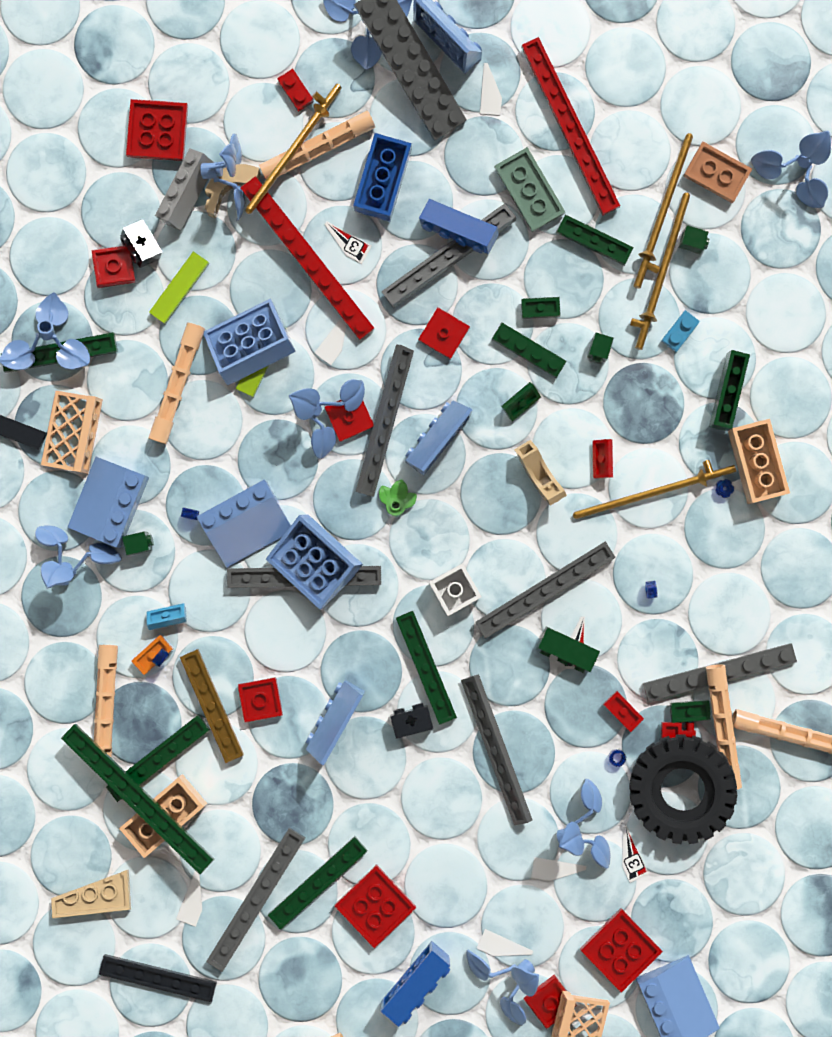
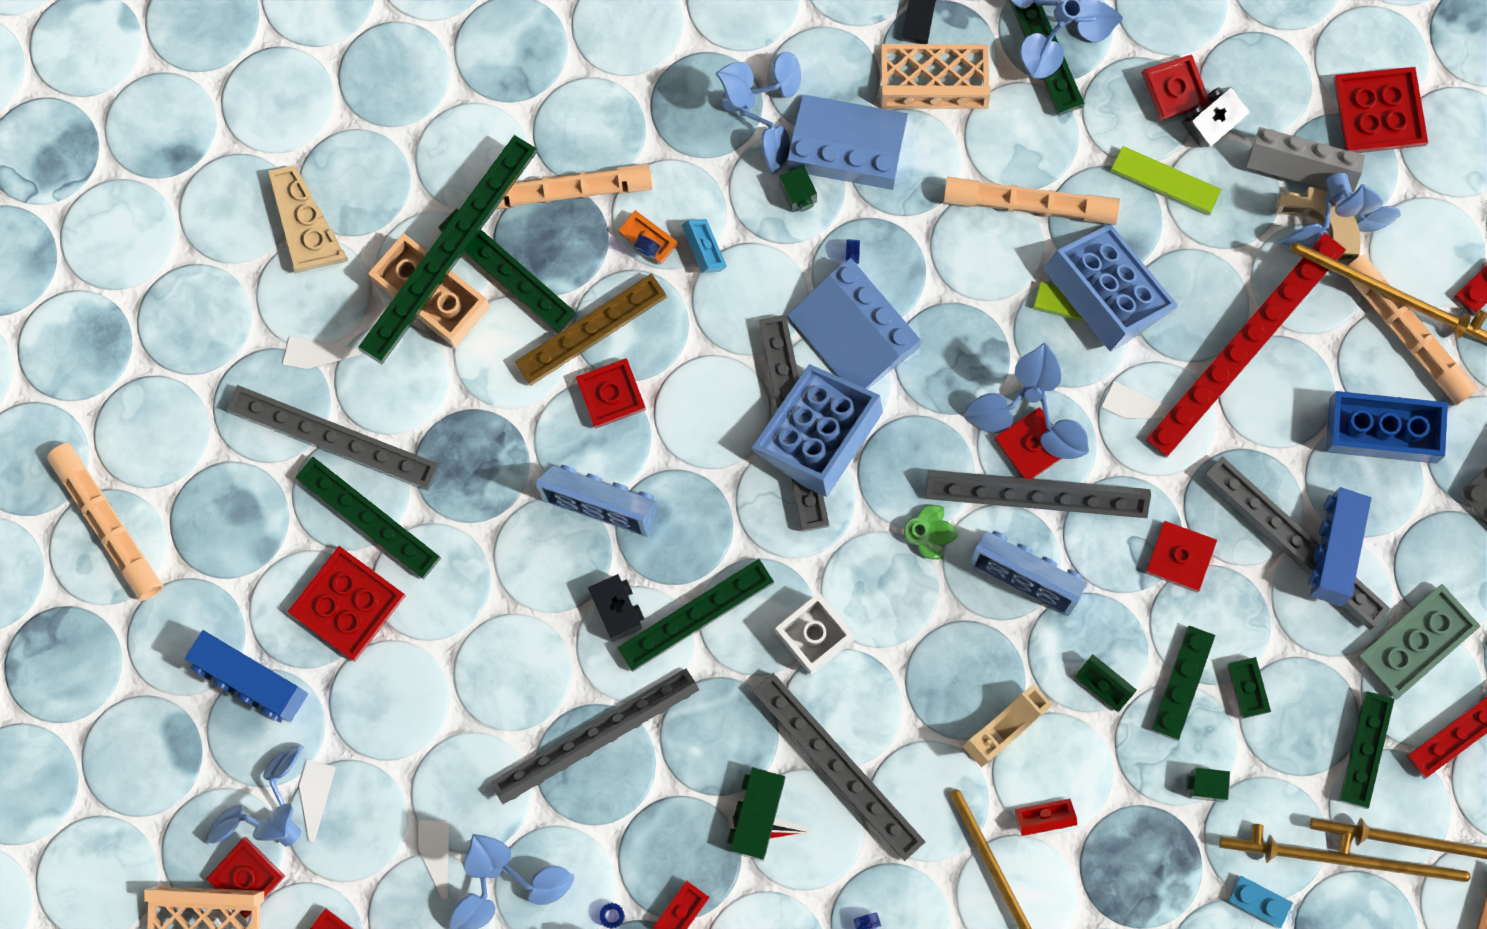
camera: 85 degrees right, 10 degrees down
(158, 978) = (205, 327): black tile -> none
(349, 244) = (1279, 403): sticker -> none
(694, 239) = (1401, 897): dark green brick -> none

